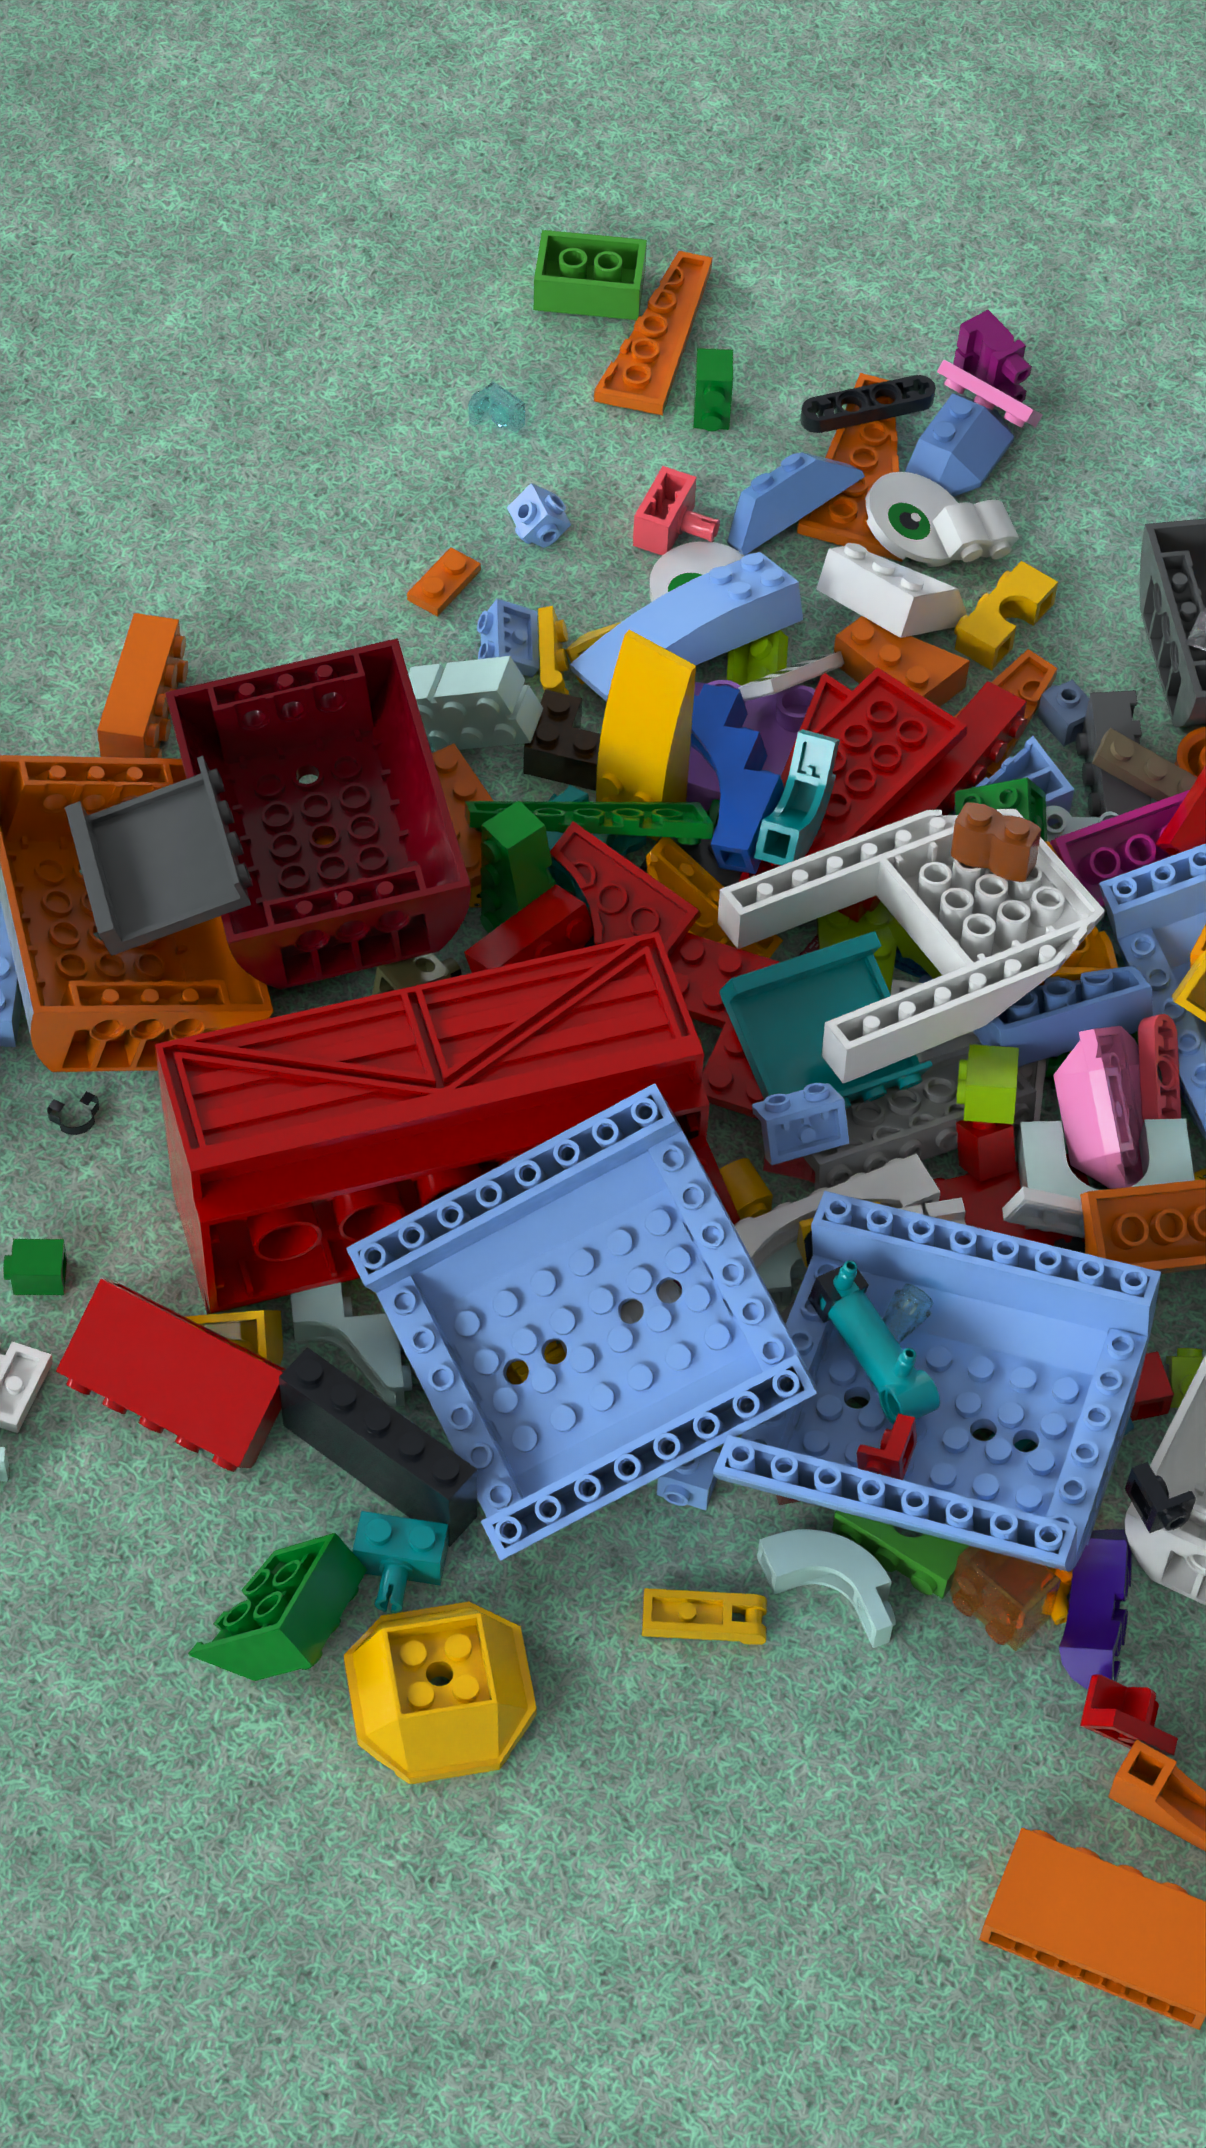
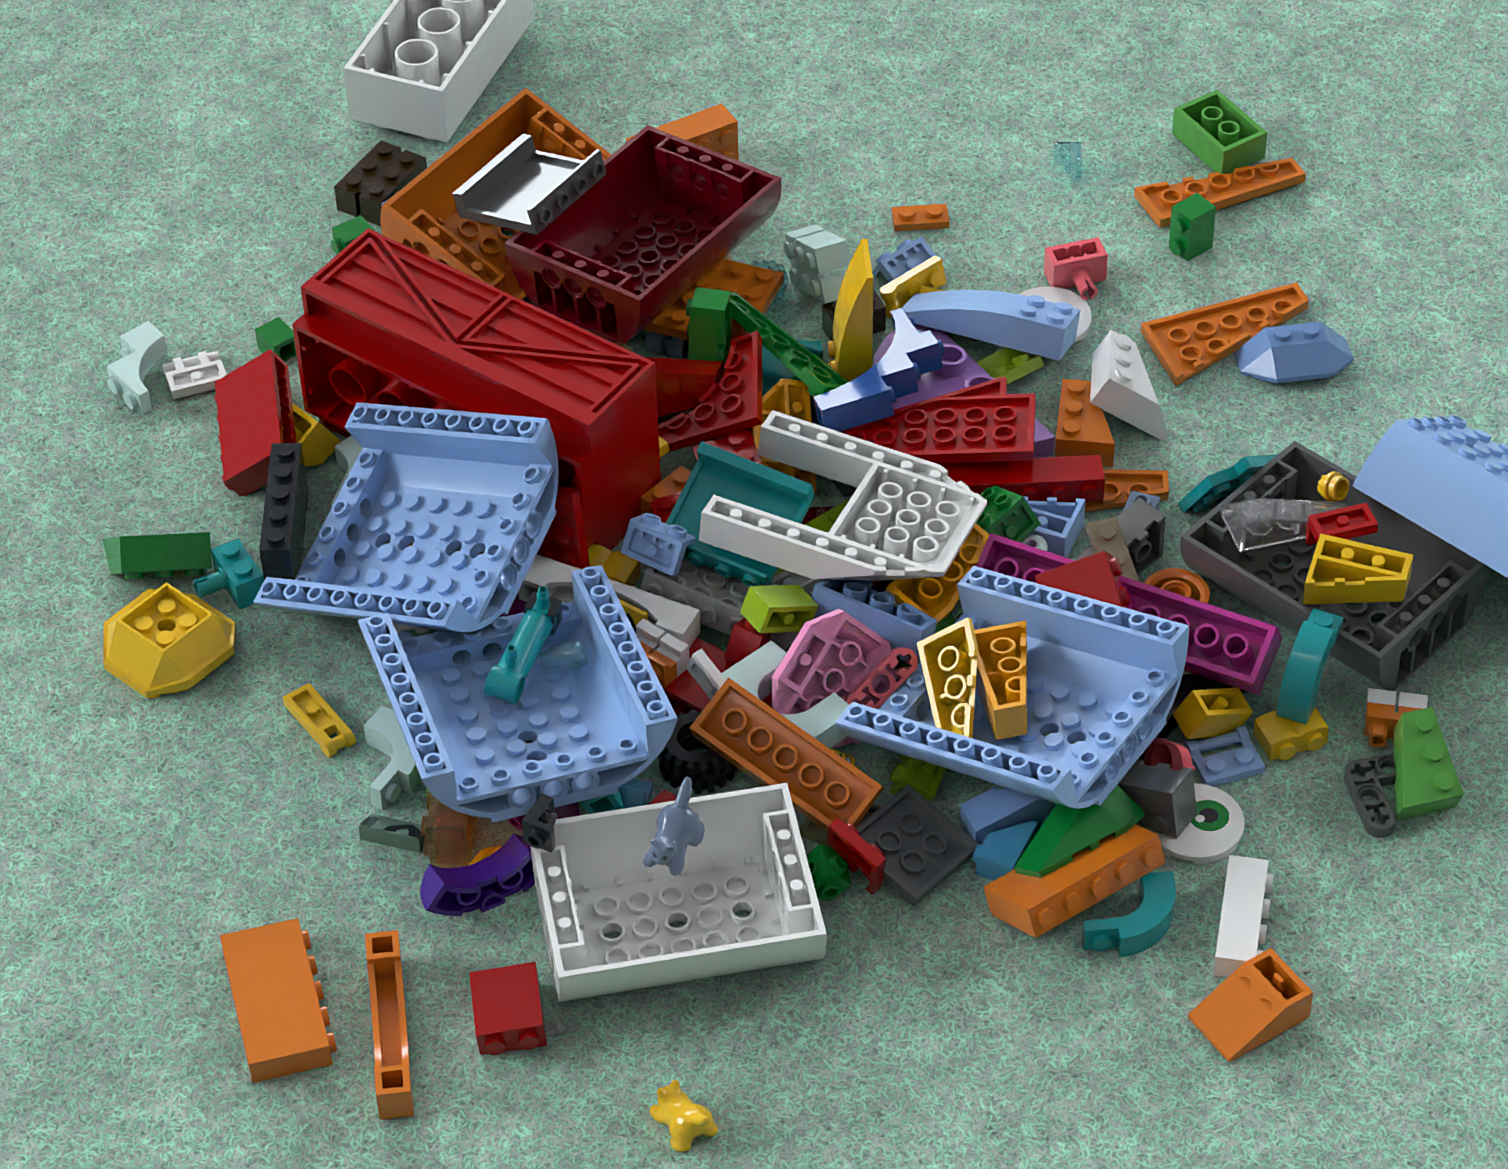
camera: 55 degrees right, 10 degrees down
(539, 516) = (1008, 219): light blue brick -> none
(786, 496) = (1148, 300): medium blue wedge -> none
(791, 676) = (1013, 379): white tile -> none
(798, 816) = (885, 419): teal arch -> none
(894, 1452) = (462, 699): red bracket -> none
(902, 515) = (1207, 367): white tile -> none
(908, 393) = (1299, 309): black beam -> none
(939, 1651) = (392, 833): none -> sand green slope
(976, 530) = (1229, 395): white brick -> none
(988, 395) = (1346, 339): bright pink plate -> none
(992, 355) = (1376, 324): magenta hips -> none
(995, 842) = (933, 494): dark orange brick -> none
(1018, 594) = (1206, 443): yellow arch -> none
(1112, 607) = (1223, 483): none -> teal wing
(1125, 1715) = (417, 923): red panel -> none

